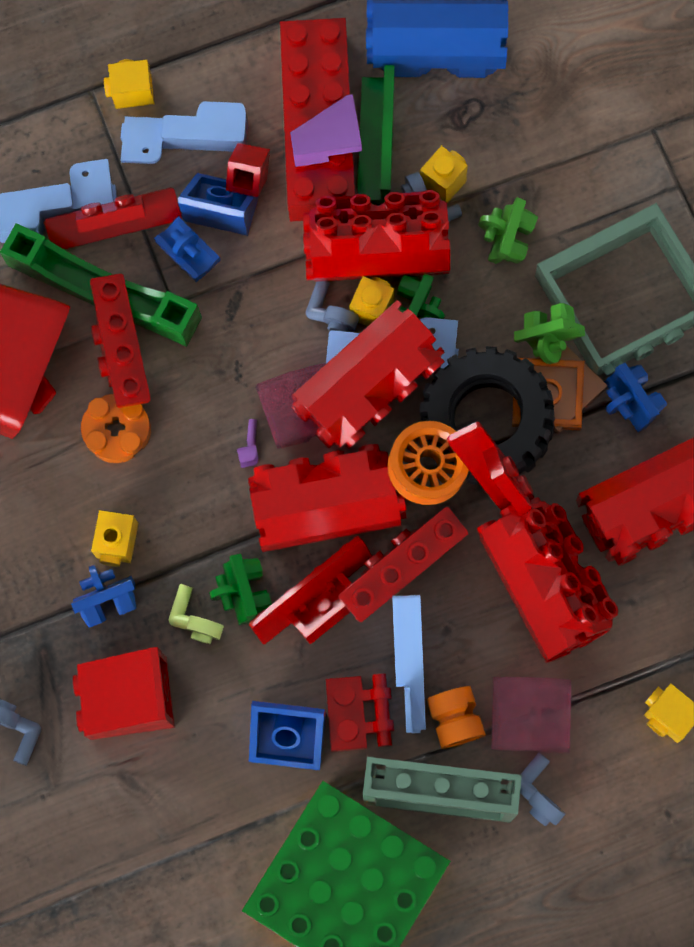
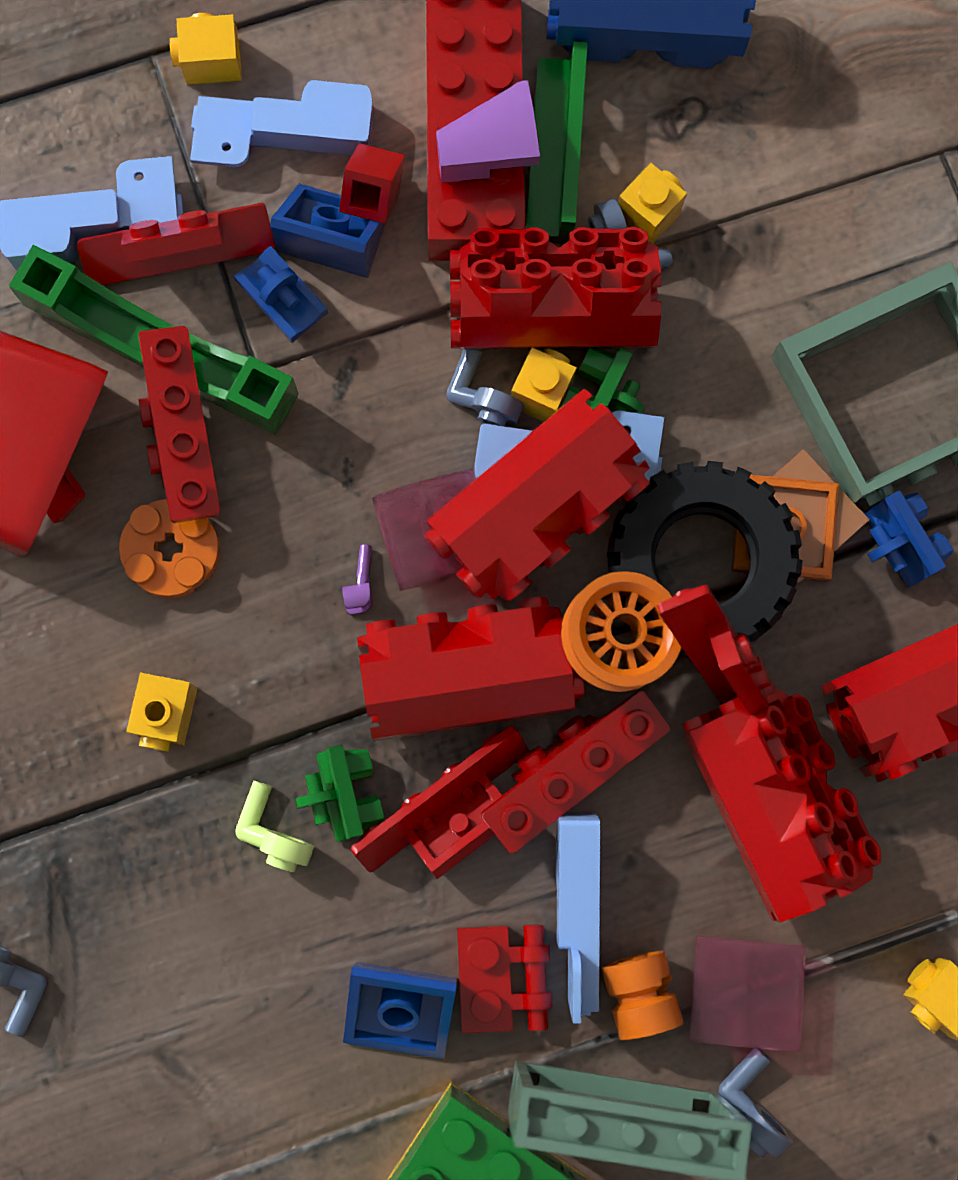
camera: 10 degrees left, 5 degrees up
(119, 591) = (123, 803): blue hips -> none
(124, 694) = (167, 946): red slope -> none
(502, 229) = (731, 288): bright green hips -> none
(550, 337) = (795, 450): bright green hips -> none

